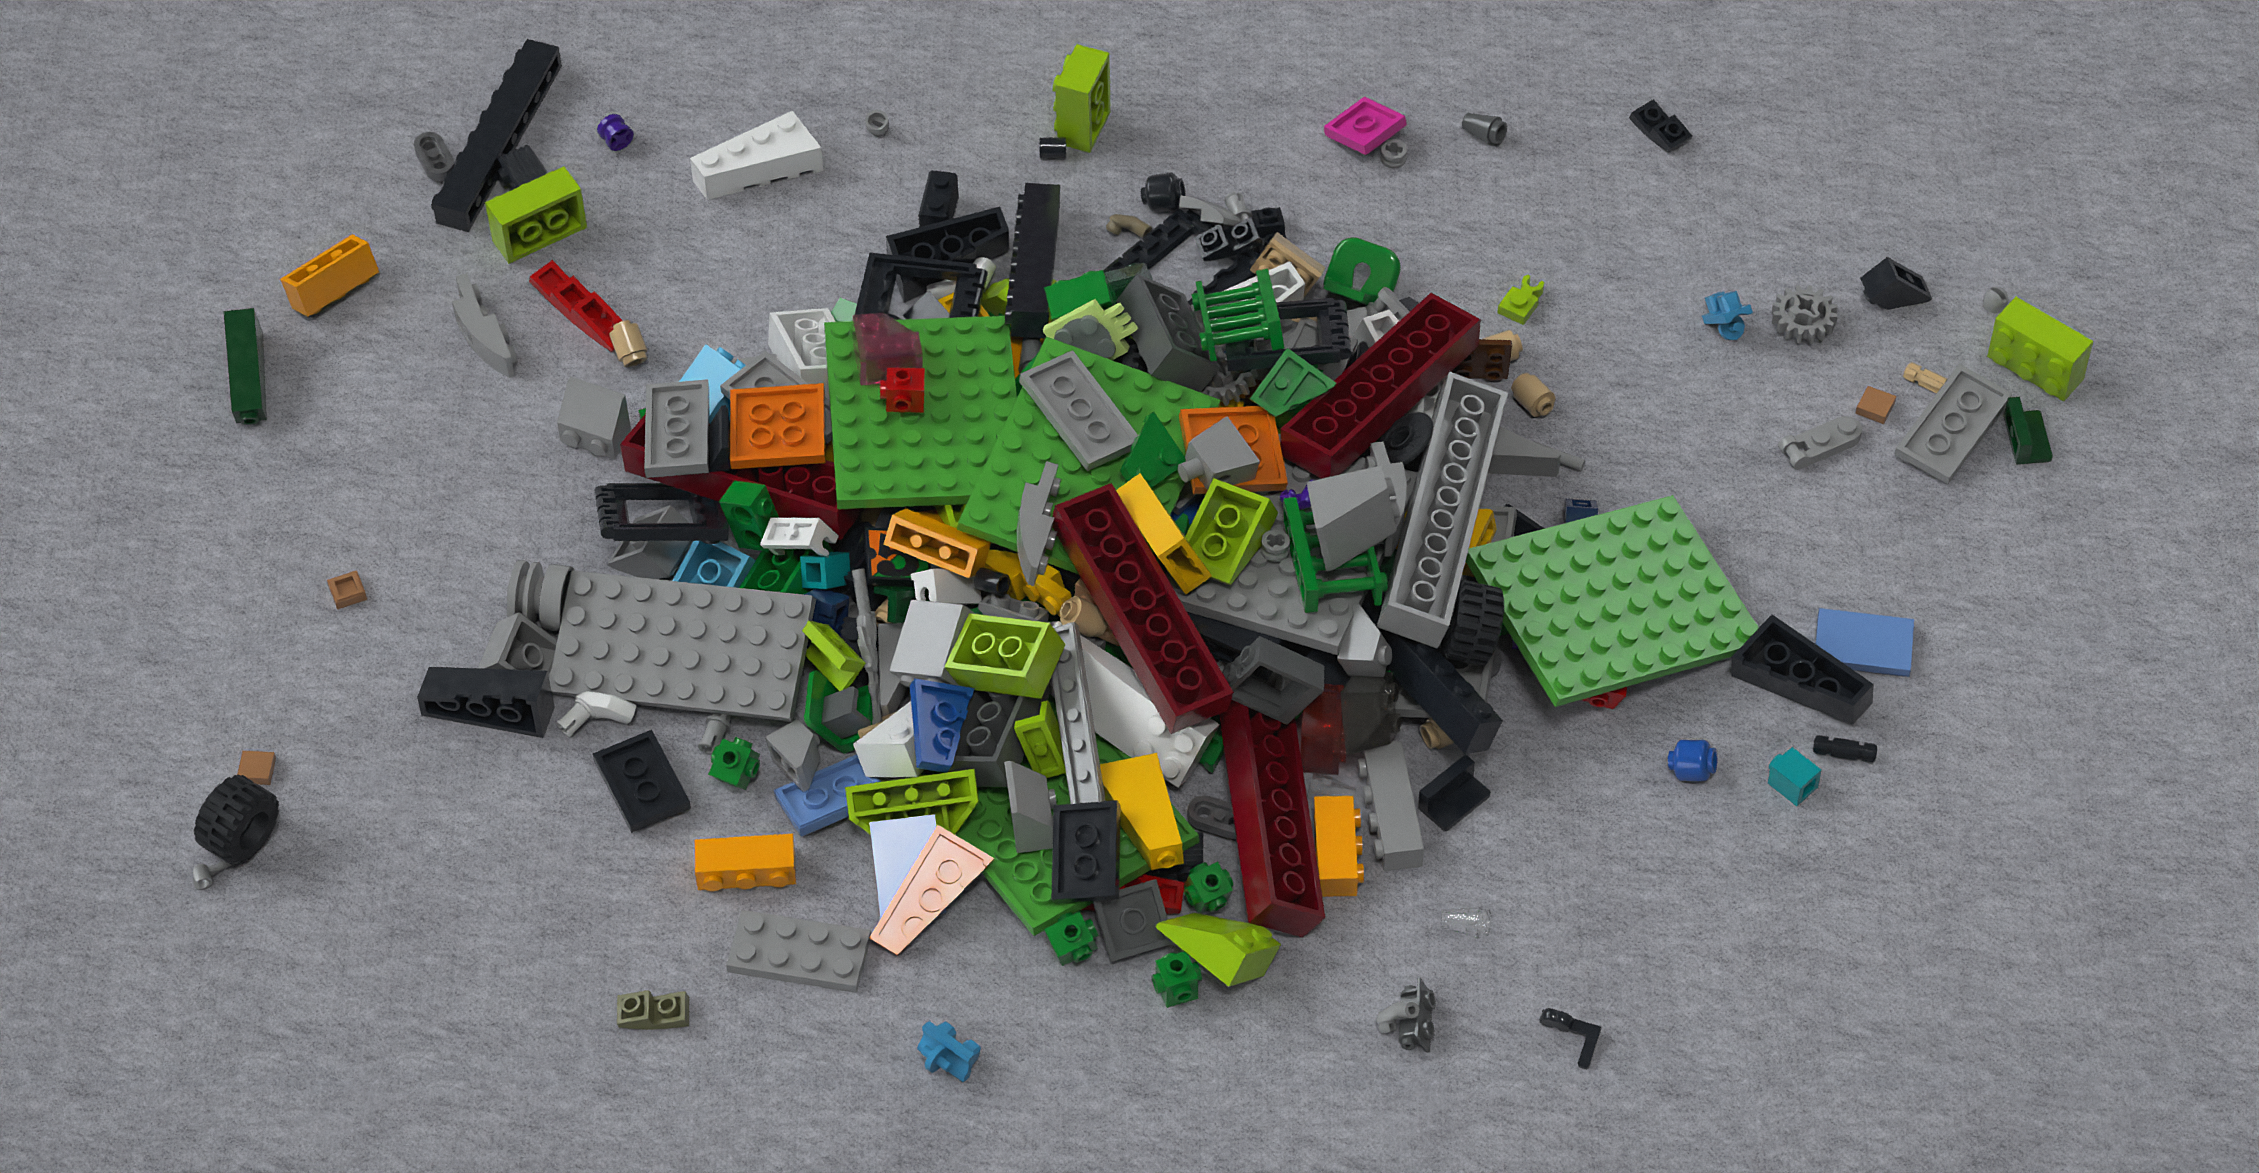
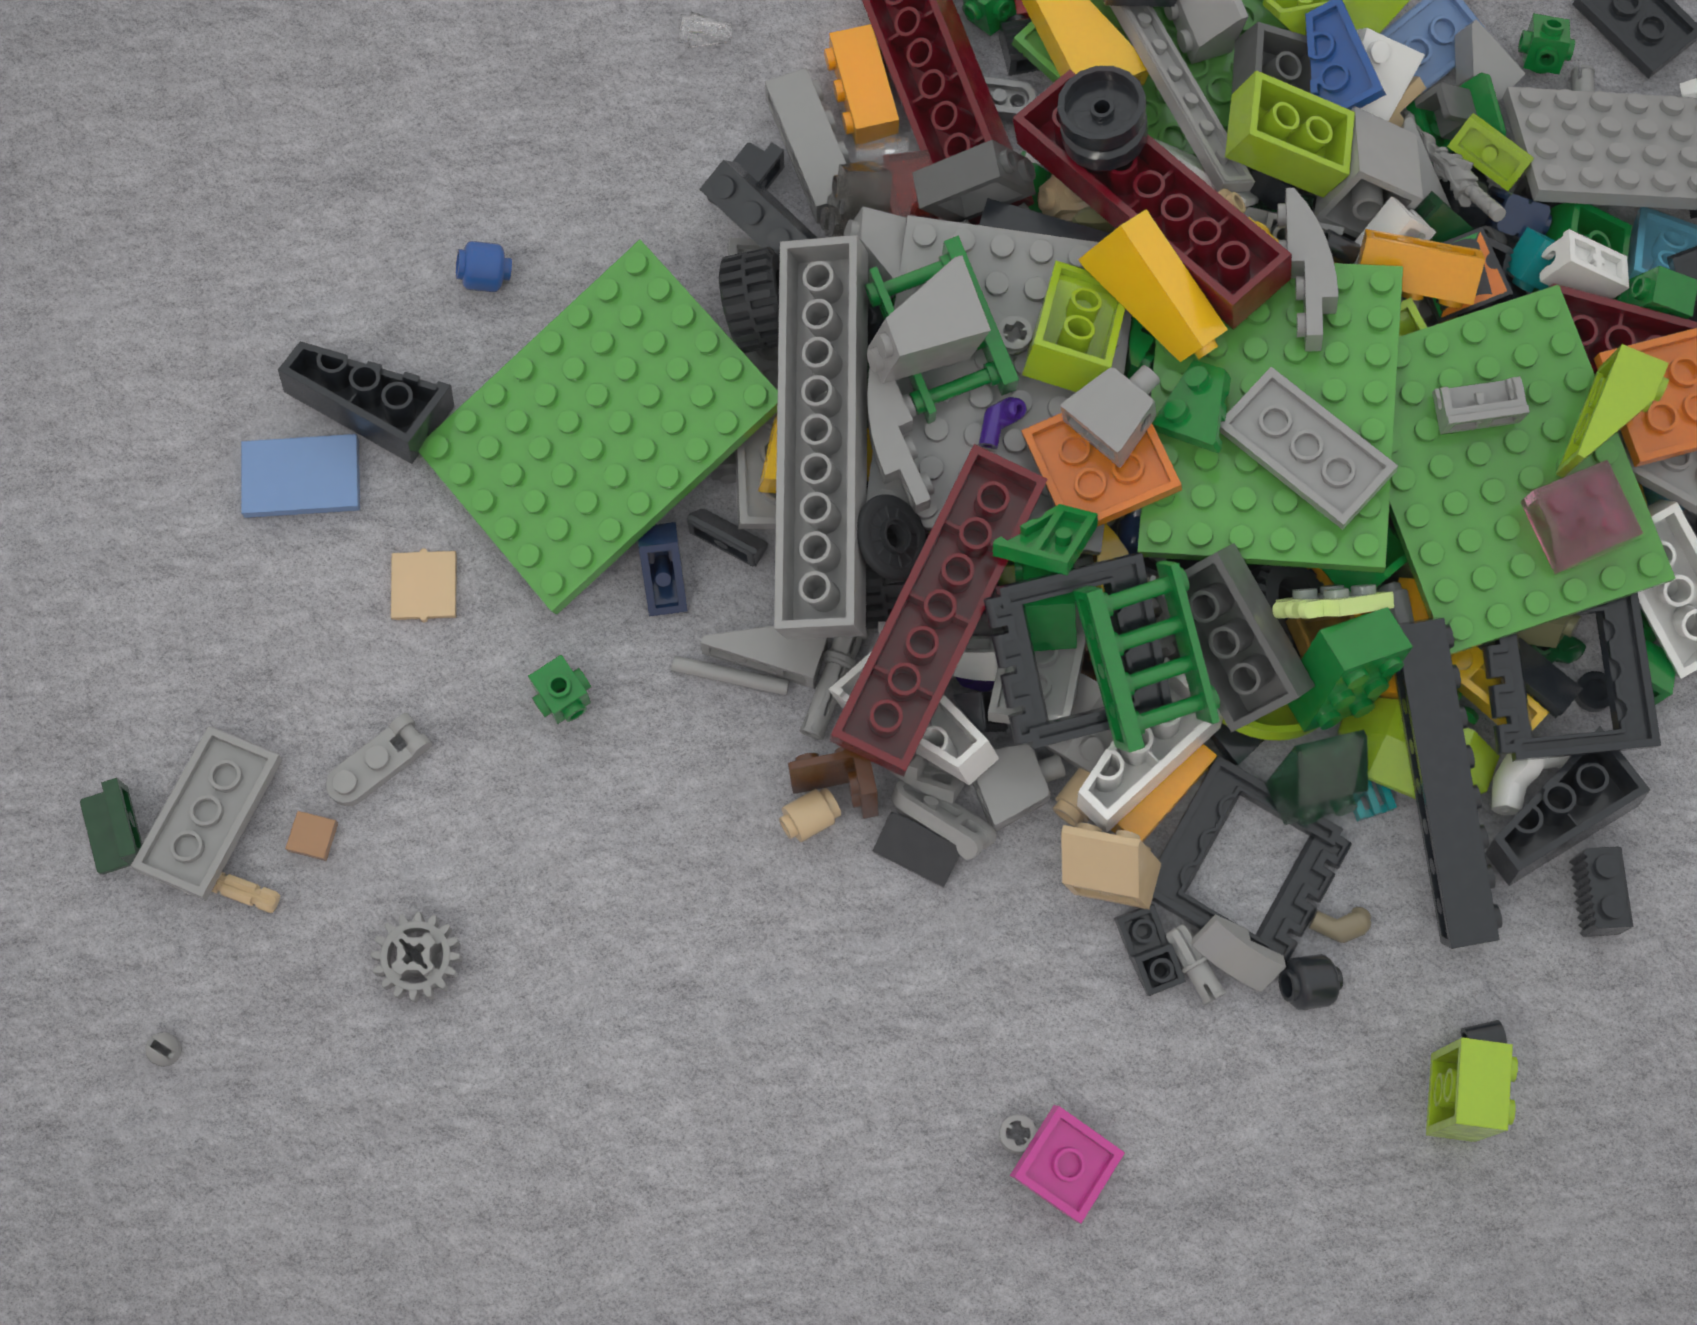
camera: 165 degrees right, 20 degrees up
(842, 389) = (1618, 394): none -> lime slope
(903, 390) = (1536, 444): red brick -> none
(933, 426) = (1480, 405): none -> light grey hinge
(1042, 742) = (1216, 84): lime panel -> none
(1169, 637) = (1103, 118): none -> black wheel
(1222, 243) = (1196, 906): black slope -> none
(1350, 252) = (1021, 858): green piece -> none
(1487, 128) = (900, 1206): dark grey cone -> none
(1522, 302) = (797, 907): lime plate -> none
(1533, 394) = (752, 749): tan brick -> none
(1659, 127) = (654, 1268): black slope -> none
(1674, 450) = (560, 690): none -> green brick
(1724, 311) = (519, 925): dark azure hips -> none
(1771, 552) = (423, 585): none -> tan piece
(1793, 776) = (365, 270): teal brick -> none
(1845, 748) = (311, 327): black axle -> none
(1894, 286) = (297, 1030): black slope -> none
(2039, 348) = (96, 940): lime brick -> none

